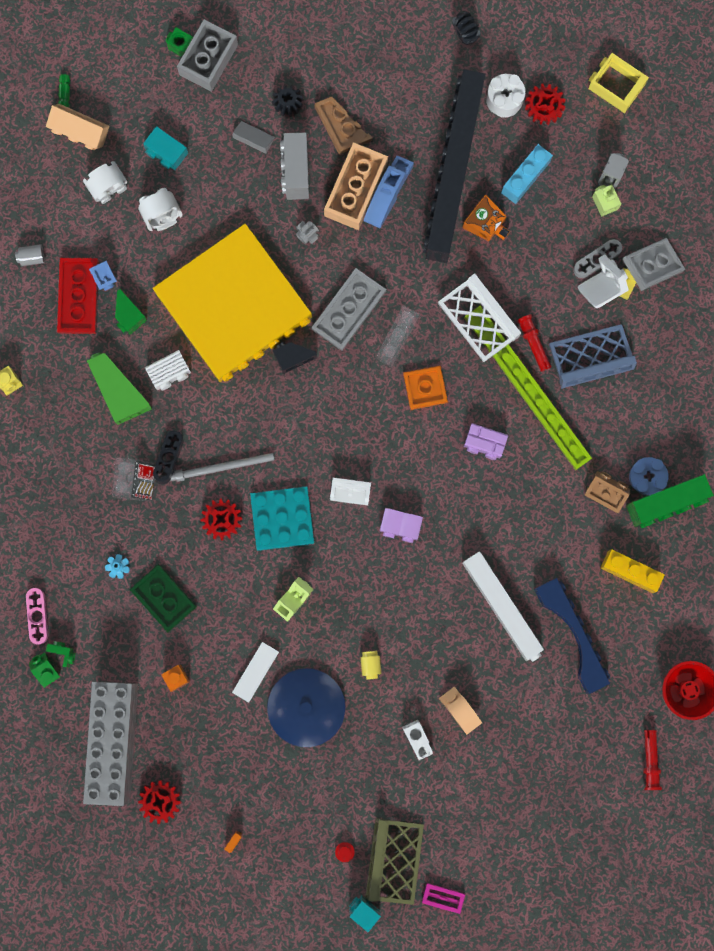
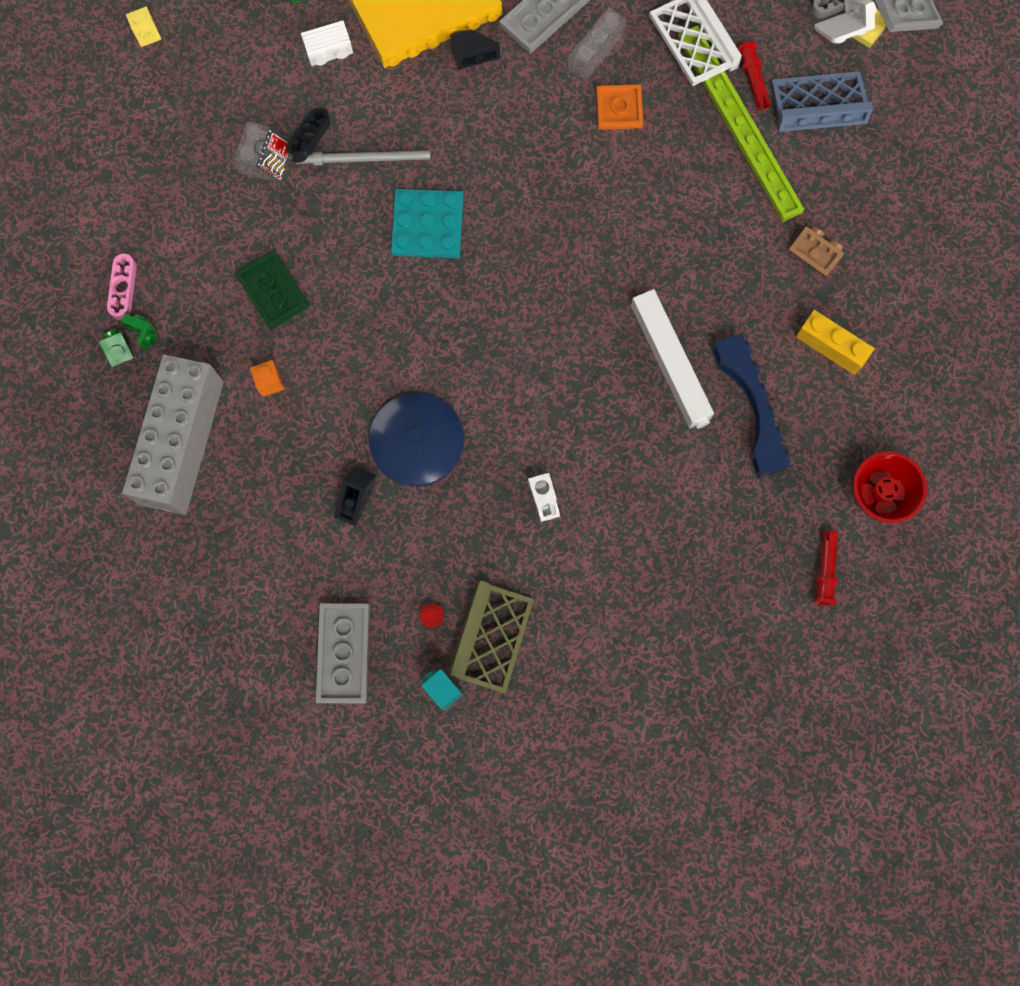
camera: 15 degrees right, 5 degrees down
(119, 393) = (266, 57): bright green slope -> none
(121, 566) = (226, 247): medium azure plant -> none
(163, 811) = (209, 519): red gear -> none
(215, 526) = (350, 219): red gear -> none
(233, 842) = (298, 580): orange tile -> none
(255, 672) = (363, 389): white tile -> none
(265, 764) = (354, 495): none -> black slope
(279, 895) = (343, 653): none -> light grey plate
(293, 599) = (425, 311): yellowish green brick -> none
(350, 491) = (512, 203): white hinge -> none
(370, 664) = (502, 400): light yellow brick -> none
(401, 525) = (565, 249): lavender brick -> none
(460, 710) = (602, 470): light nougat brick -> none
(460, 902) = (539, 701): dark pink tile -> none
(485, 441) = (680, 172): lavender brick -> none
(640, 469) = (872, 229): medium blue plate -> none
(674, 499) = (892, 267): green brick -> none

